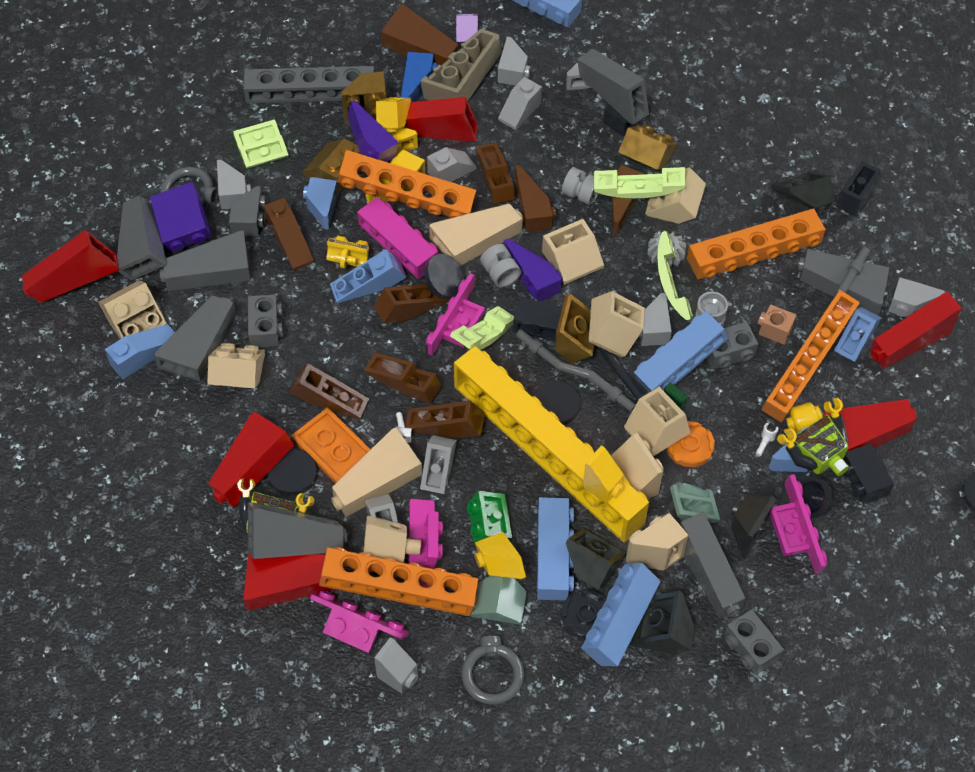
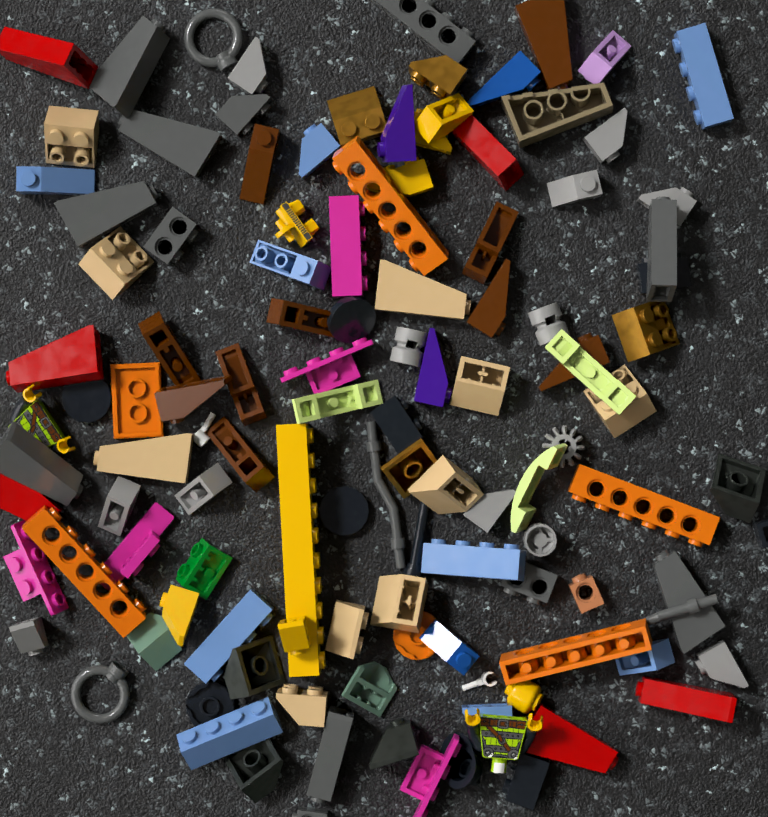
camera: 45 degrees right, 30 degrees up
(180, 217) = (179, 73): dark purple brick -> none
(260, 144) = (314, 39): yellowish green slope -> none
(369, 409) = (180, 400): none -> reddish brown slope
(388, 540) = (103, 530): tan torso -> none
(449, 164) = (458, 204): light grey slope -> none
(676, 395) = (439, 588): dark green tile -> none
(722, 425) = (449, 647): none -> slope

